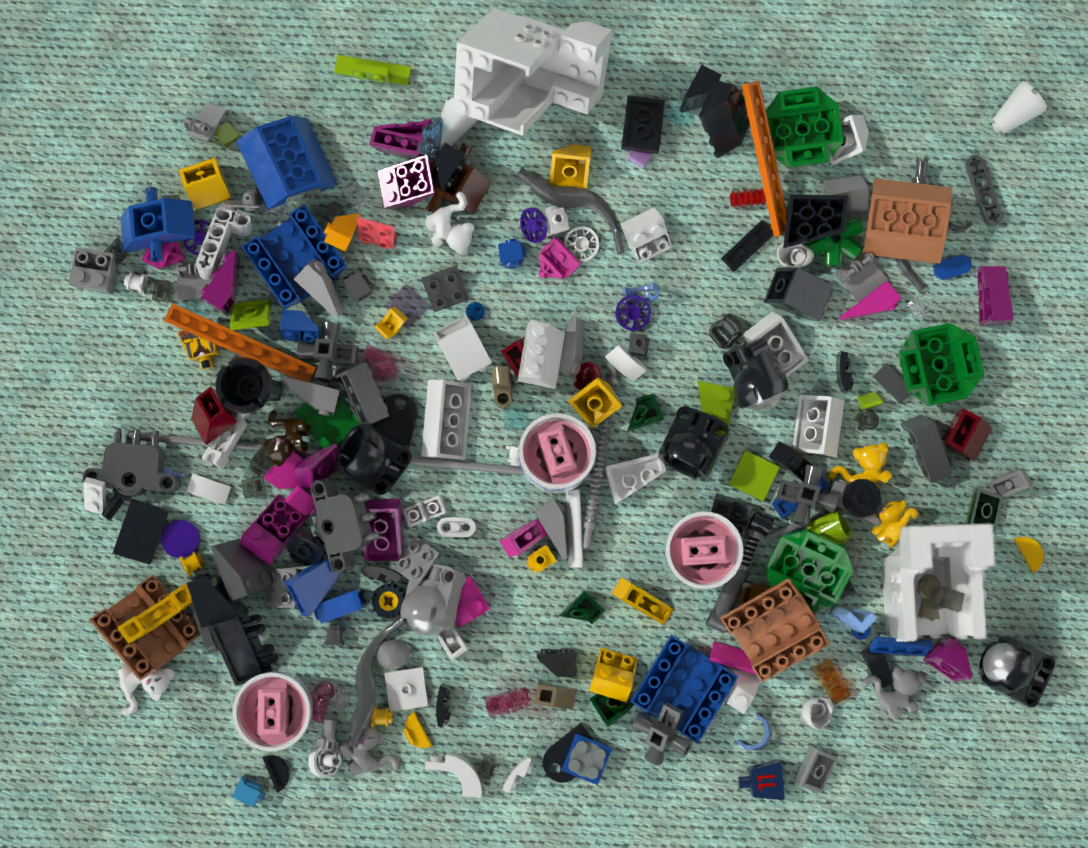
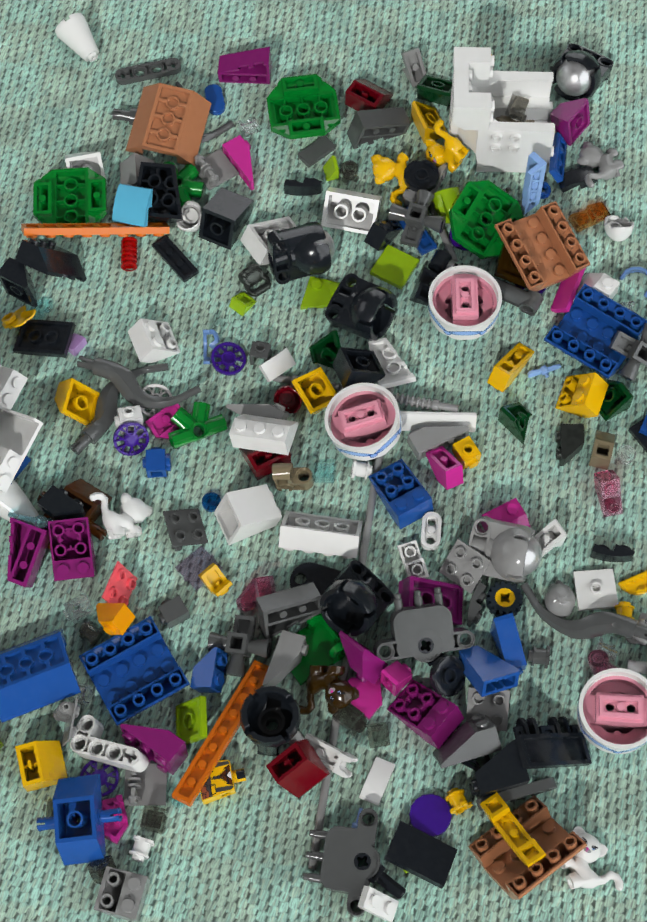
camera: 85 degrees left, 20 degrees down
(319, 285) = (163, 648): light grey slope -> none
(493, 495) = (401, 493): none -> blue slope
(558, 289) = (199, 419): none -> green piece
(592, 215) = (128, 385): none -> dark grey animal
(622, 444) = (357, 366): none -> black slope
(641, 635) = (544, 370): none -> light blue piece
(663, 95) = (17, 318): none -> yellow plate
(699, 320) = (242, 303): none -> lime slope
(797, 193) = (132, 205): none -> medium azure slope
(939, 503) = (424, 120): none -> yellow slope

